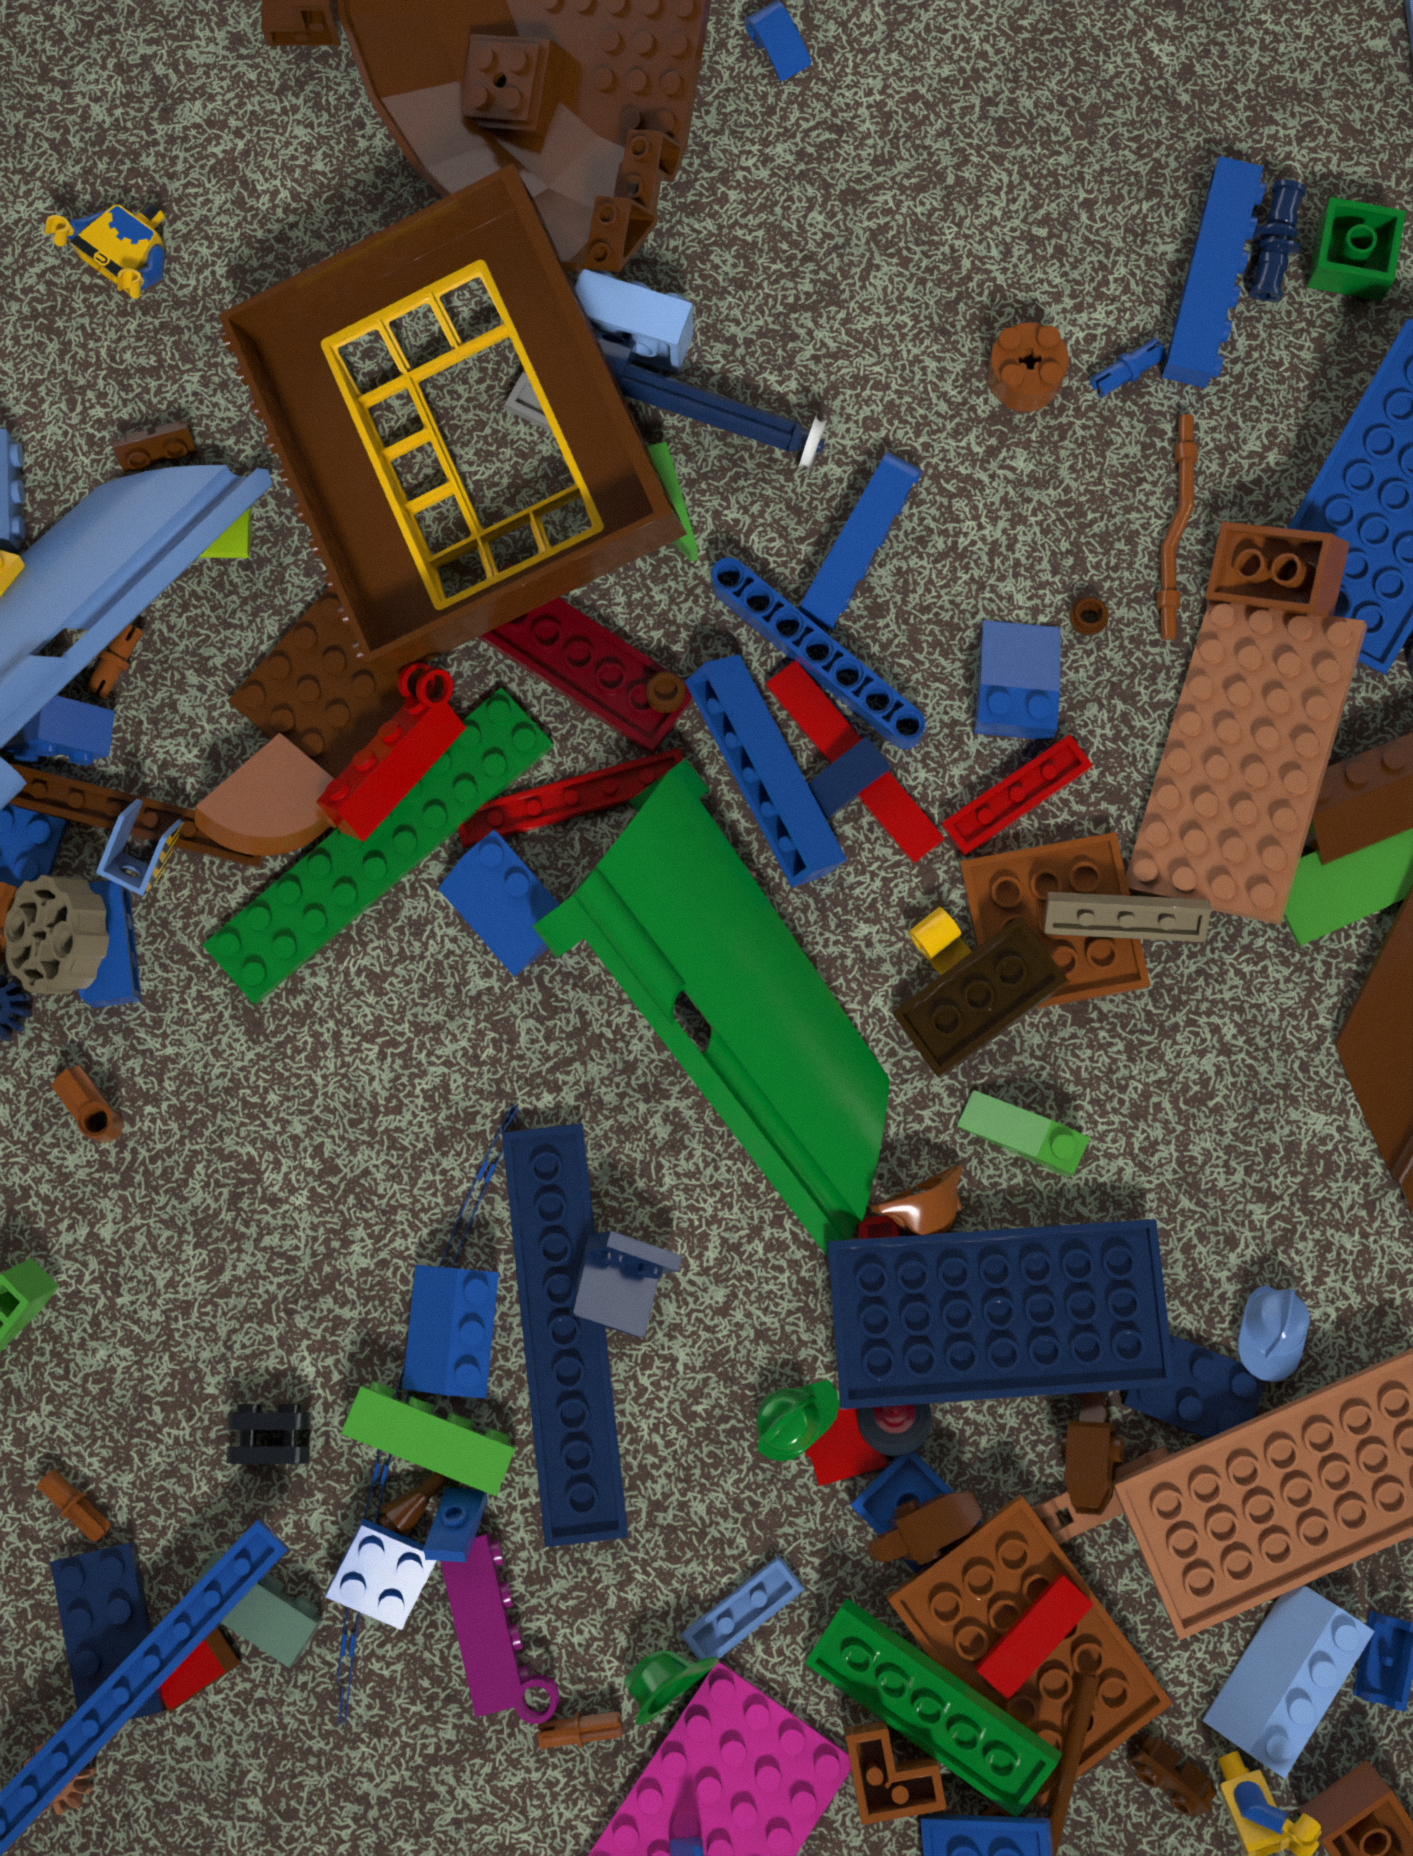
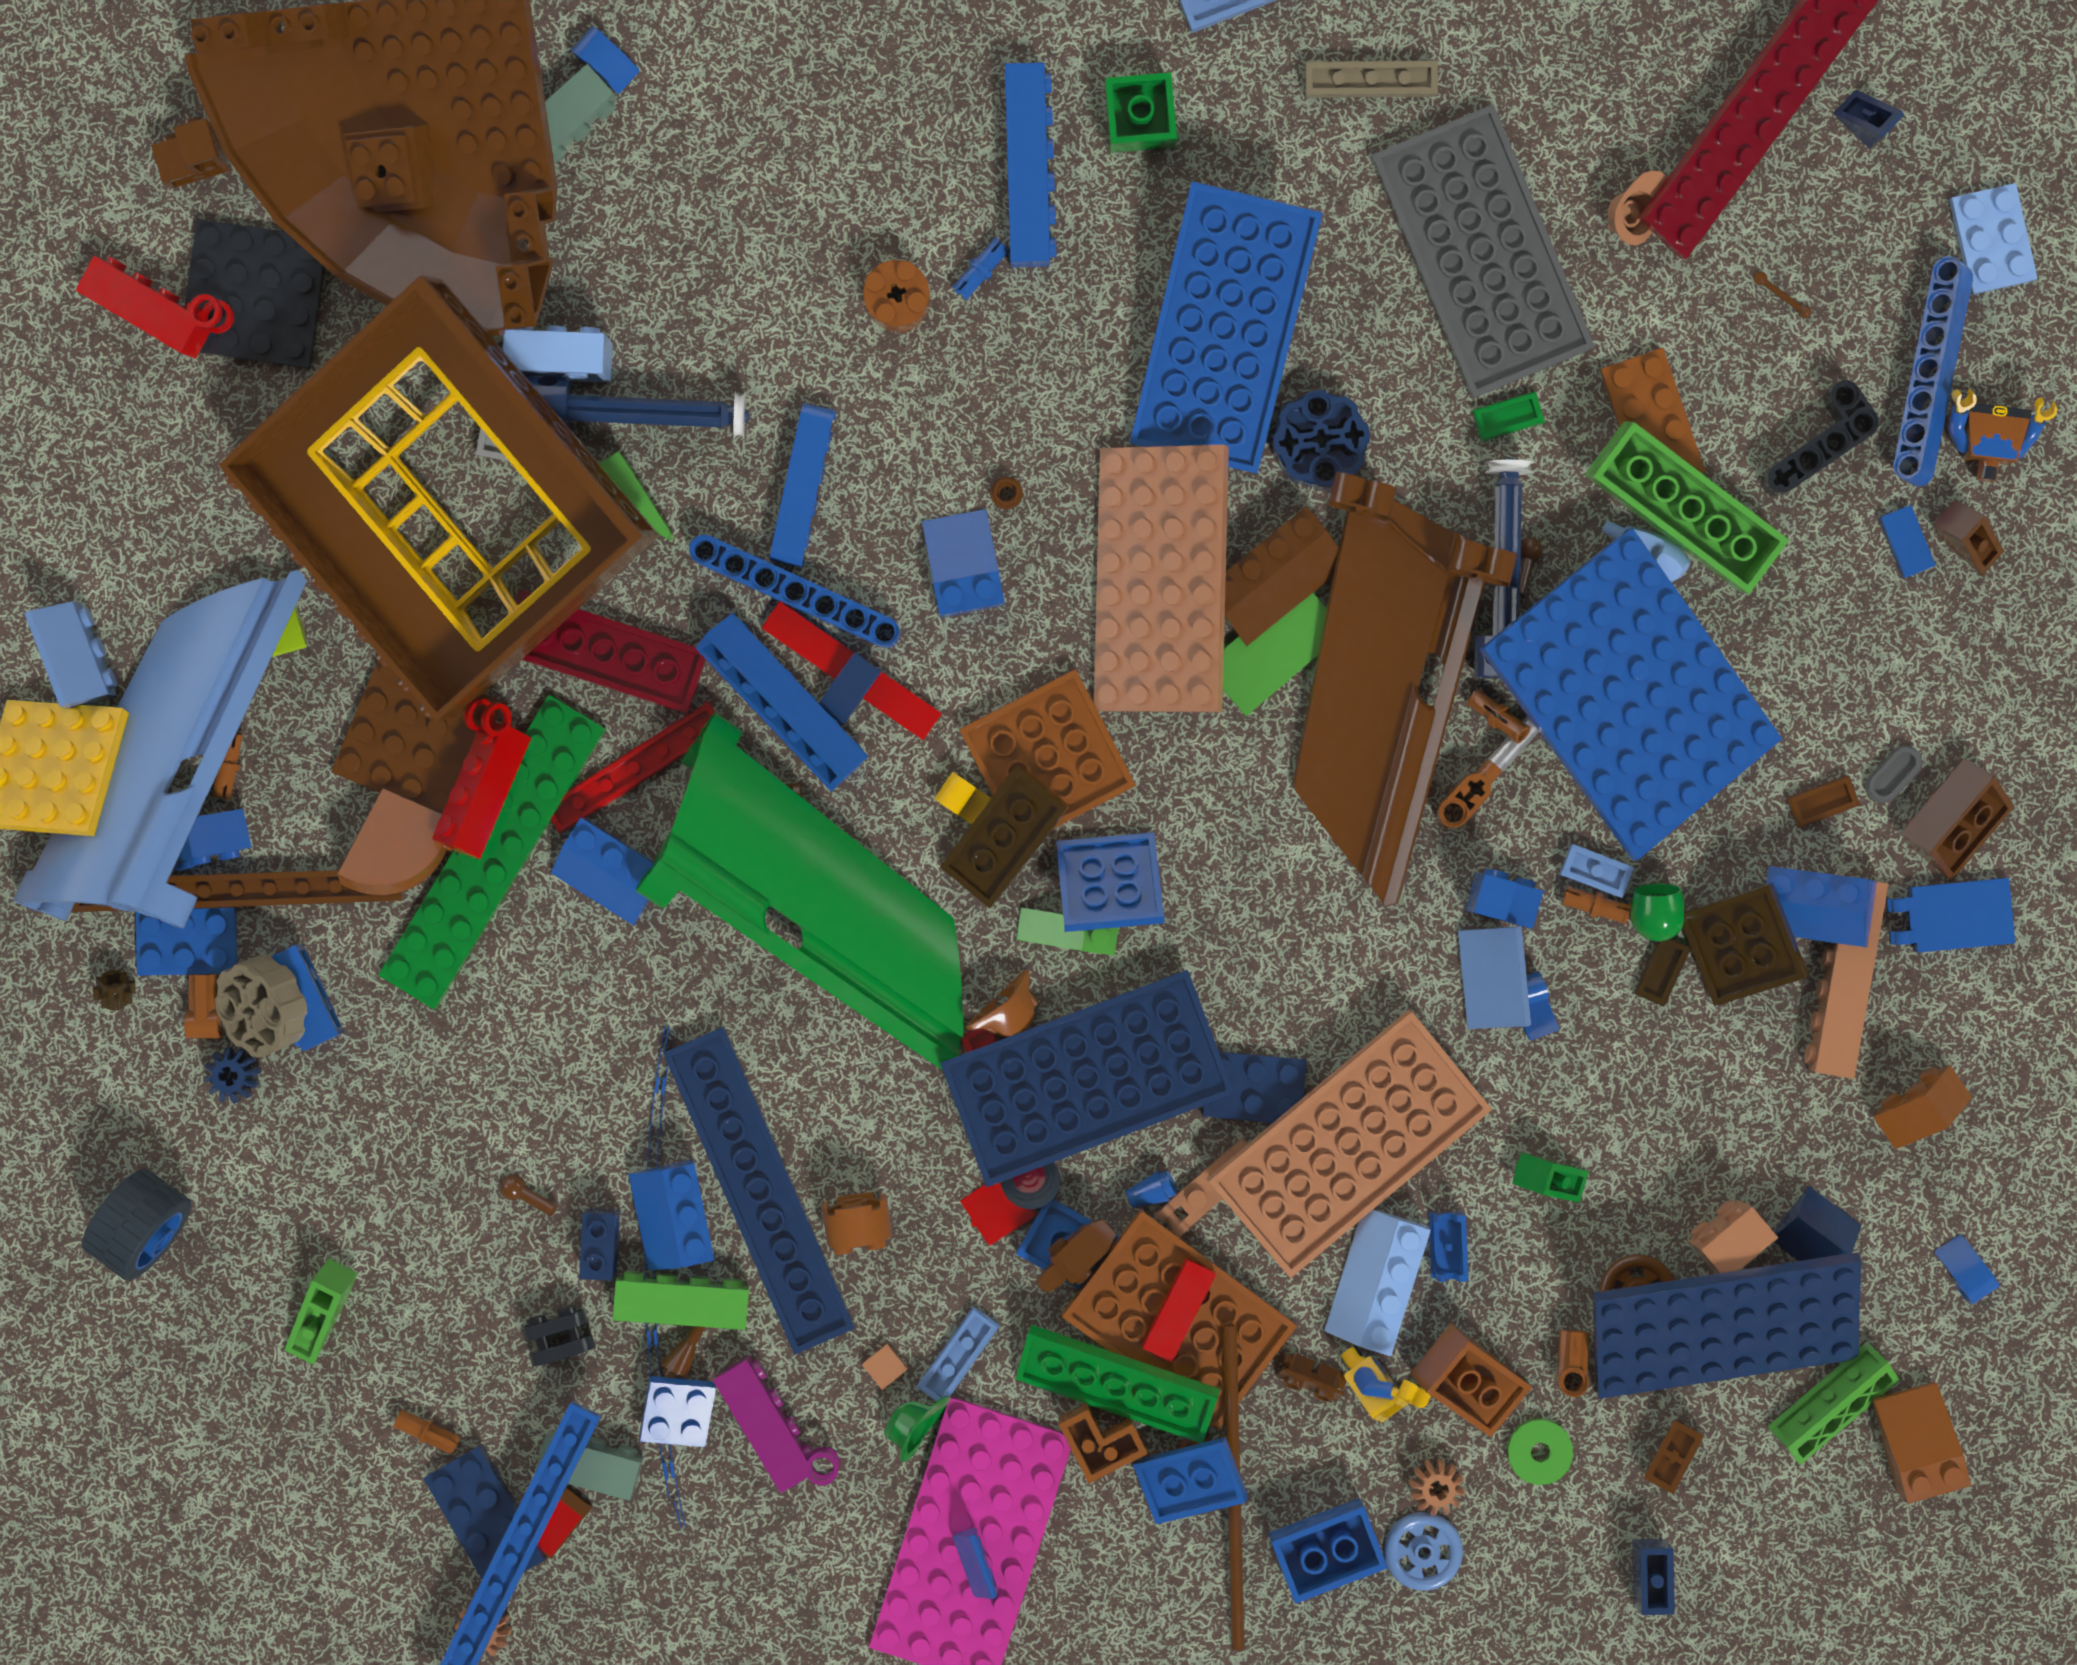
camera: 20 degrees left, 10 degrees up
(87, 1103) = (329, 1126): dark orange piece -> none
(115, 858) = (287, 927): medium blue piece -> none
(116, 244) = (107, 411): torso -> none
(142, 450) = (185, 582): reddish brown hinge -> none
(203, 153) = (153, 310): none -> red hinge
(276, 1242) = (514, 1188): none -> reddish brown bar
(316, 173) = (267, 284): none -> black plate
(354, 1338) = (599, 1244): none -> dark blue brick
(455, 1525) = (721, 1360): blue plate -> none
(579, 1730) = (861, 1478): dark orange axle -> none
(620, 1281) = (790, 1142): dark blue bracket -> none
(649, 1596) = (884, 1366): none -> nougat tile
(665, 692) = (682, 662): reddish brown tile -> none
(670, 1405) = (857, 1222): none -> dark orange brick
(733, 78) = (576, 108): none -> sand green brick
(795, 1419) = (956, 1201): green piece -> none
(1016, 795) = (989, 661): red plate -> none
(1037, 1477) = (1152, 1190): none -> blue cone
(1091, 1087) = (1109, 882): none -> blue plate
(1091, 1456) = (1186, 1164): reddish brown hinge -> none
(1126, 916) = (1101, 738): dark tan plate -> none
(1185, 455) = (1048, 331): dark orange bar -> none
(1273, 1333) = (1301, 1028): medium blue piece -> none
(1276, 240) = (1073, 122): dark blue piece -> none
(1277, 569) = (1146, 417): dark orange slope -> none

